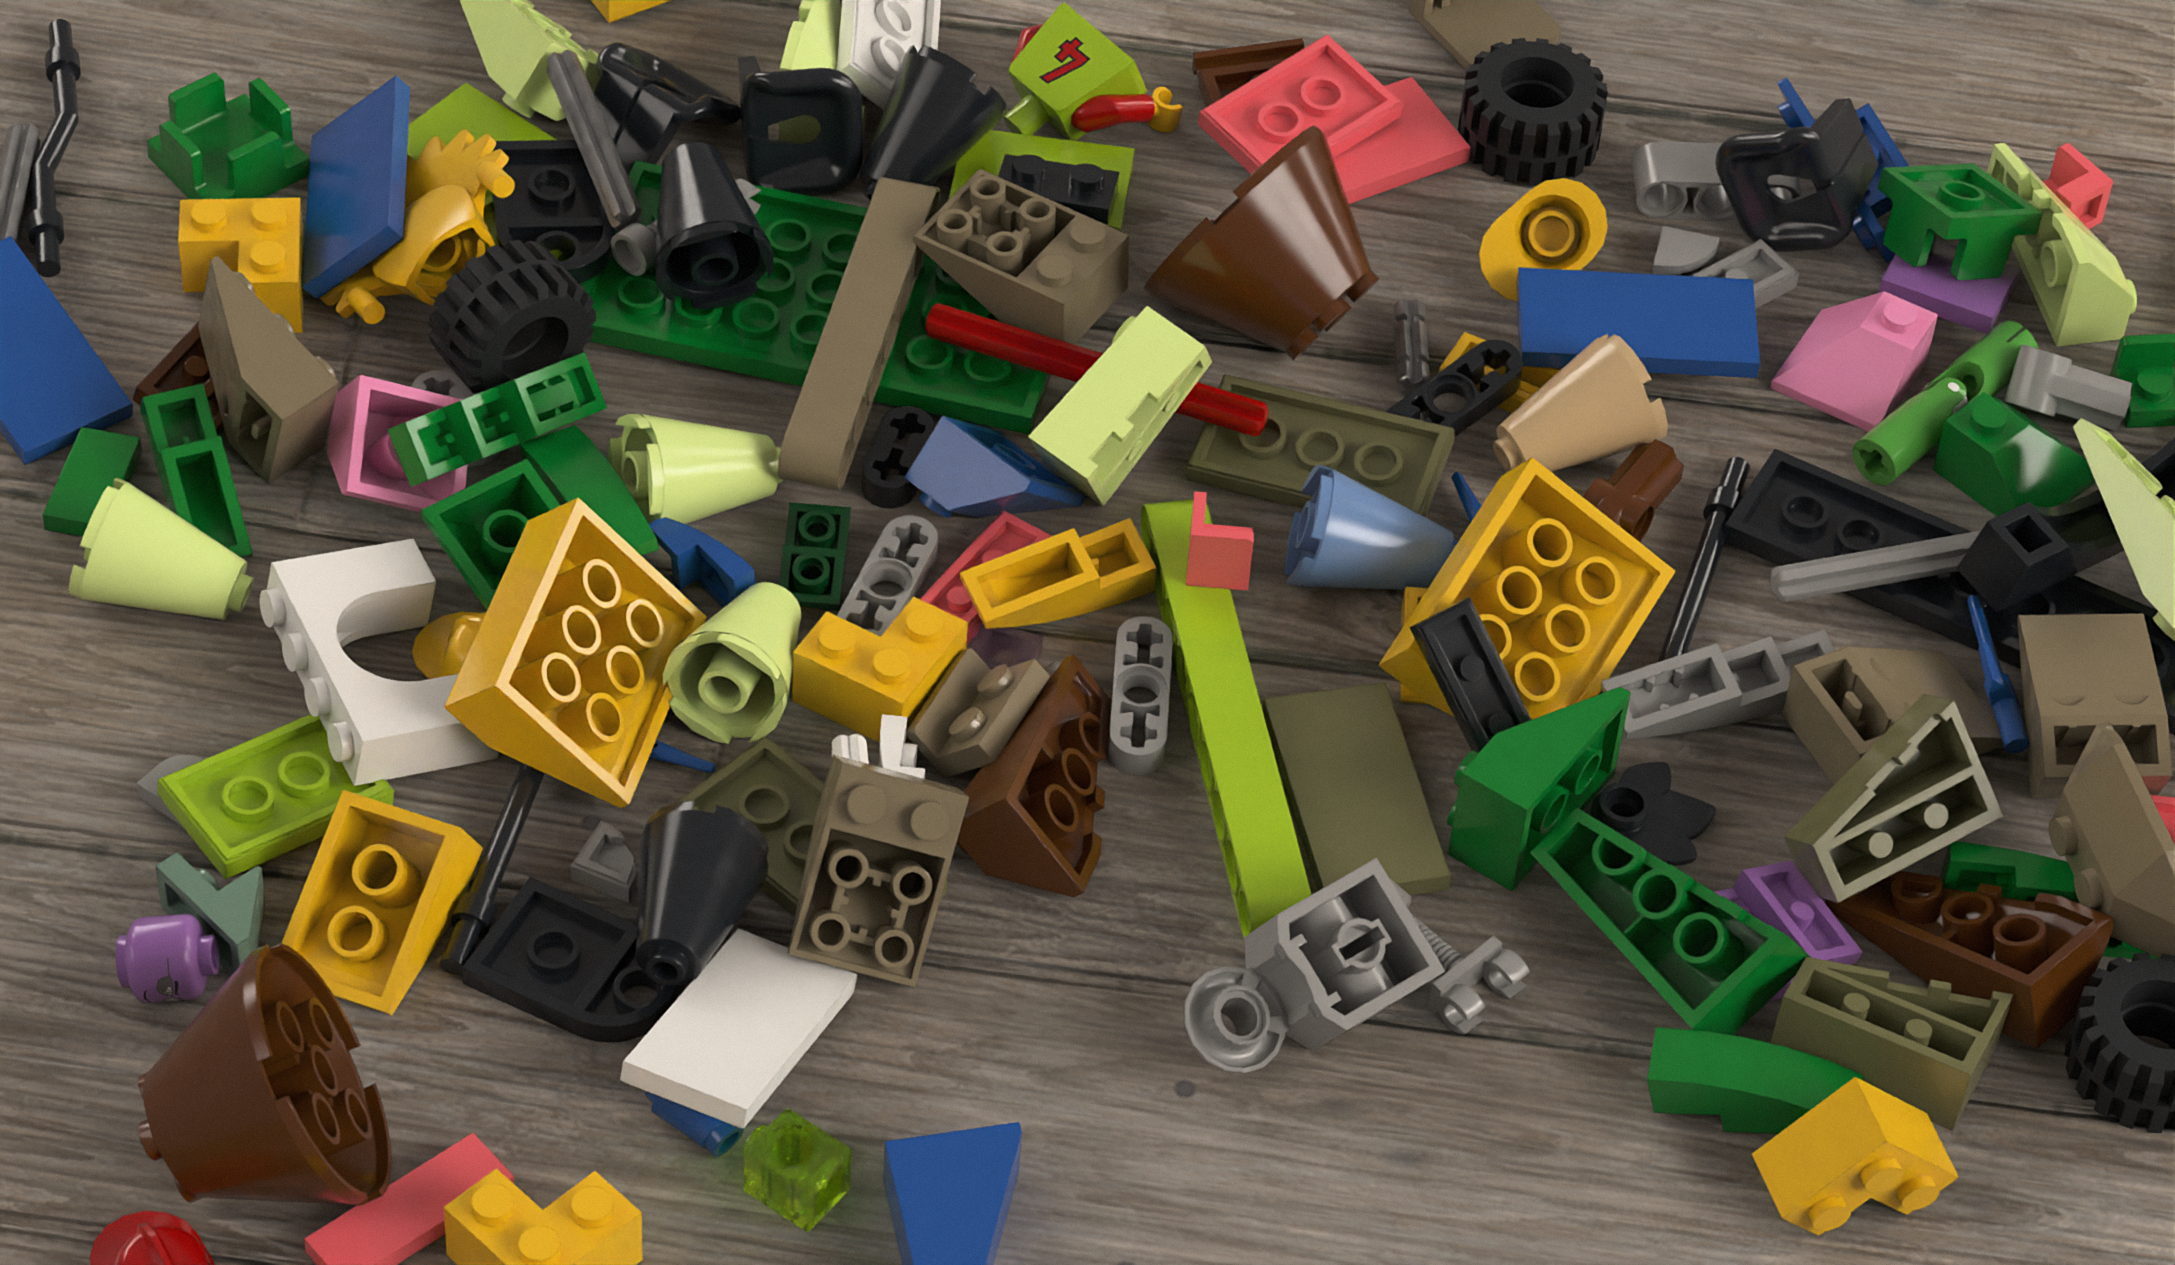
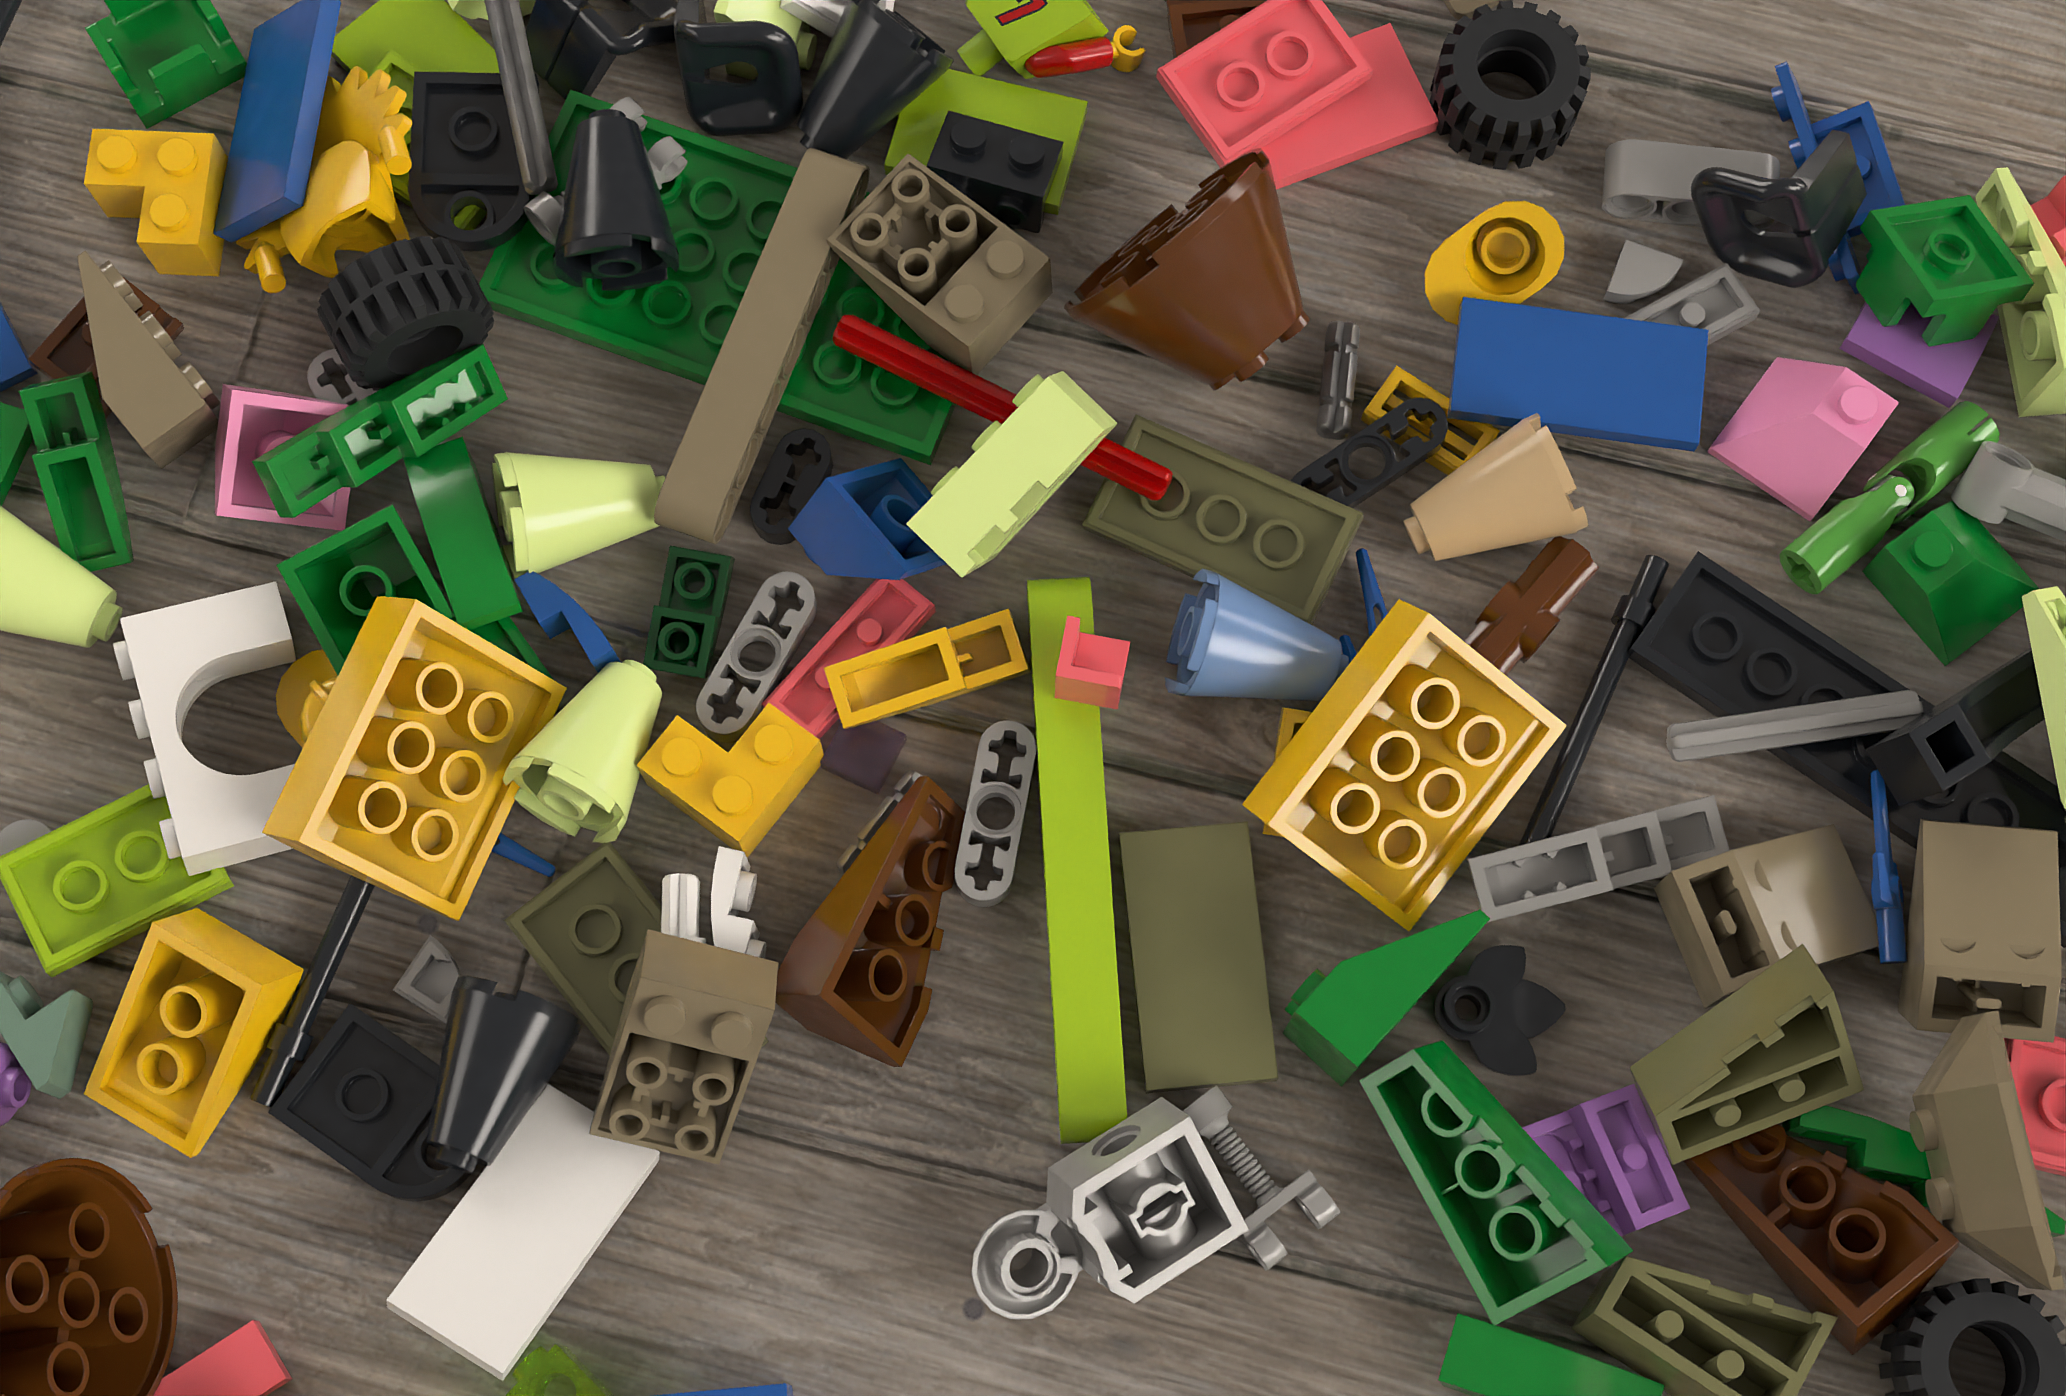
camera: 10 degrees right, 25 degrees up
(974, 712) = (820, 835): dark tan bracket -> none
(1469, 673) = (1336, 869): black tile -> none

